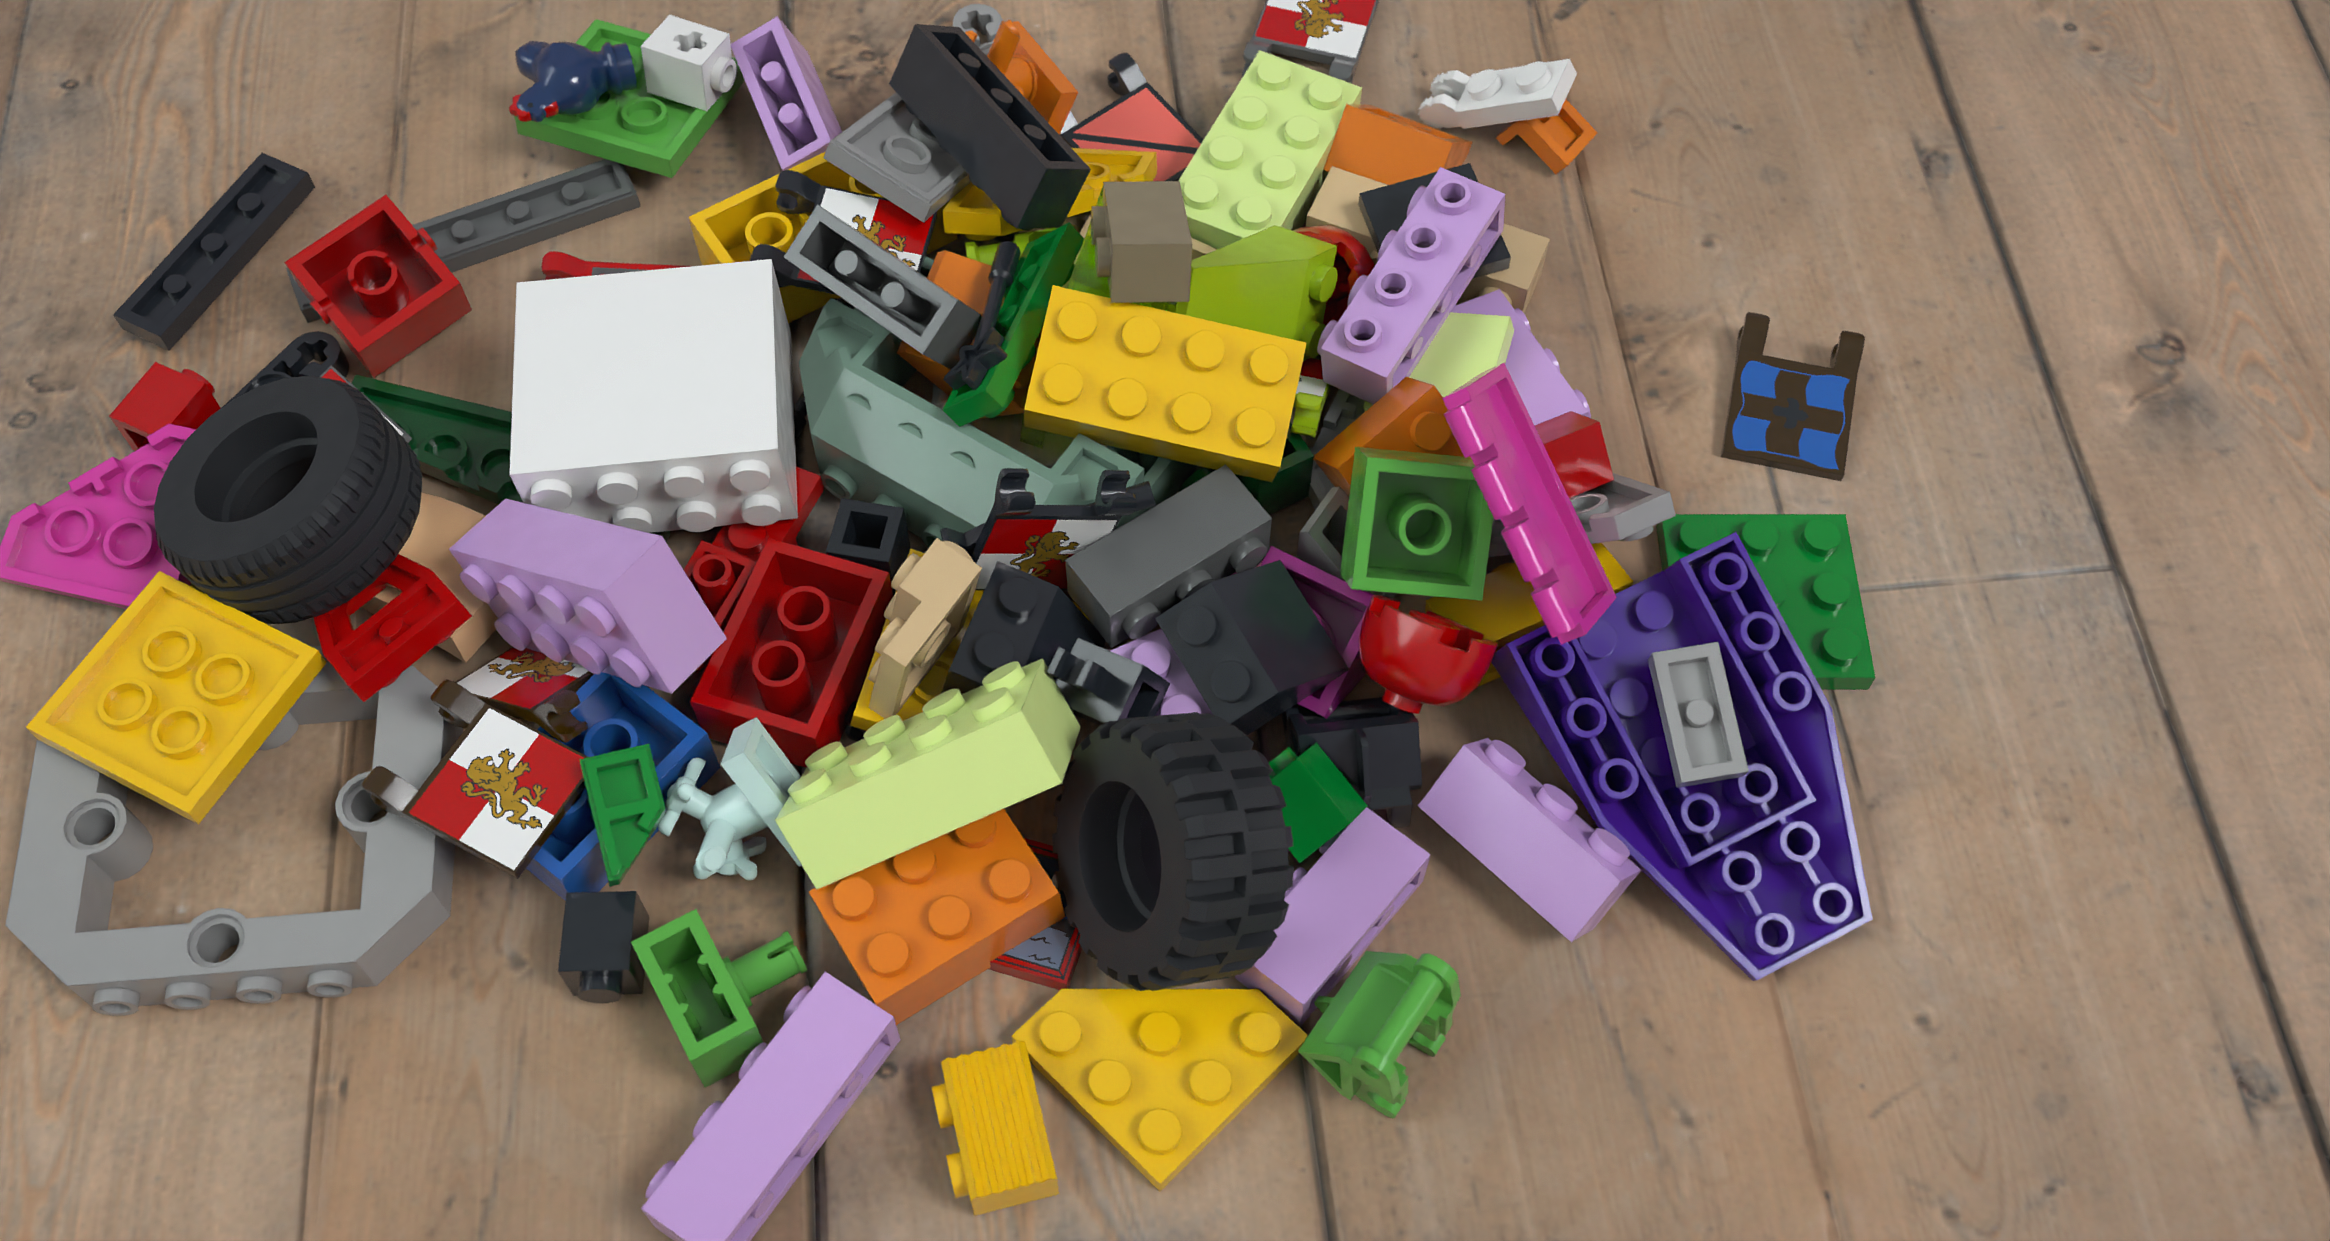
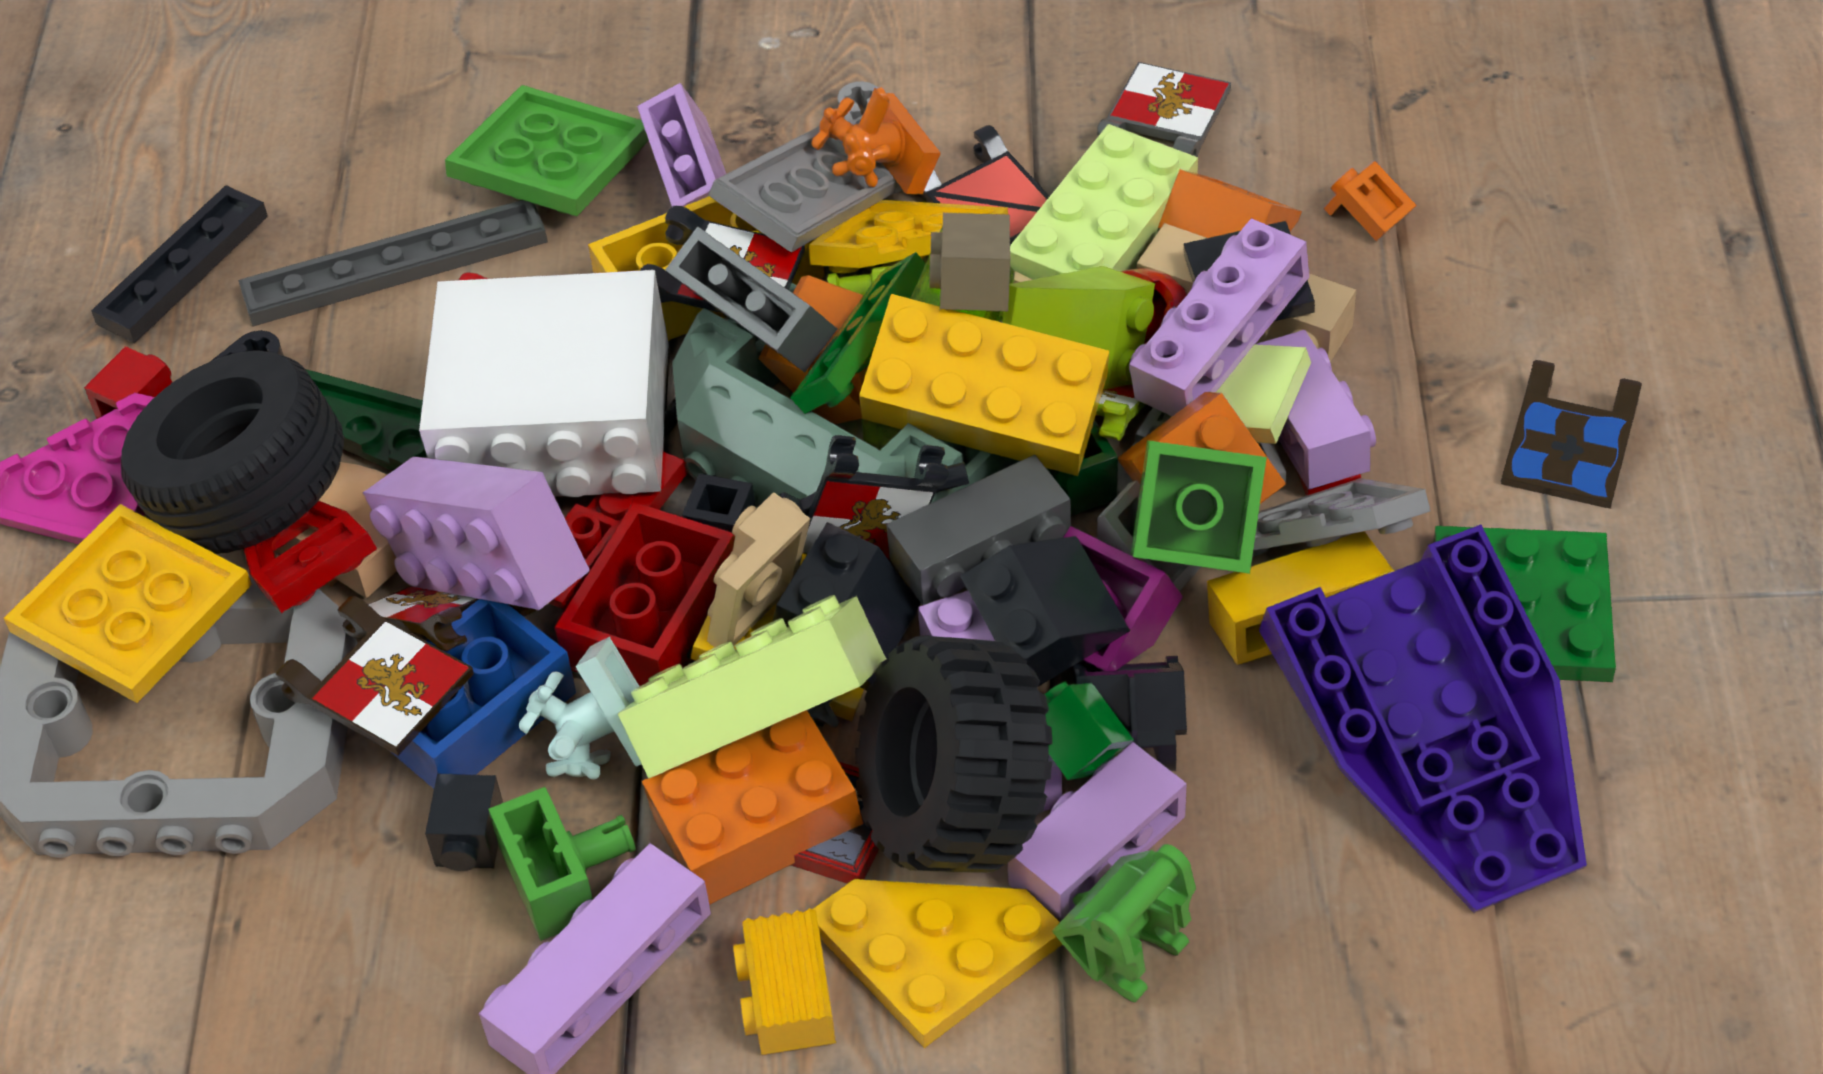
camera: 10 degrees right, 10 degrees down
(379, 285) = (319, 292): red brick -> none
(569, 77) = (496, 128): dark blue animal -> none
(623, 805) = (491, 701): green tile -> none
(688, 63) = (599, 120): white brick -> none
(987, 350) = (834, 343): black piece -> none
(988, 127) = (854, 174): black brick -> none
(1105, 684) = (904, 615): black brick -> none
(1421, 655) = (1191, 618): red cylinder -> none
(1498, 95) = (1324, 169): white hinge -> none
(1530, 502) = (1293, 486): dark pink hinge -> none
(1530, 836) = (1279, 776): lavender brick -> none
(1576, 451) = (1336, 467): red brick -> none
(1697, 714) = (1436, 679): light grey plate -> none

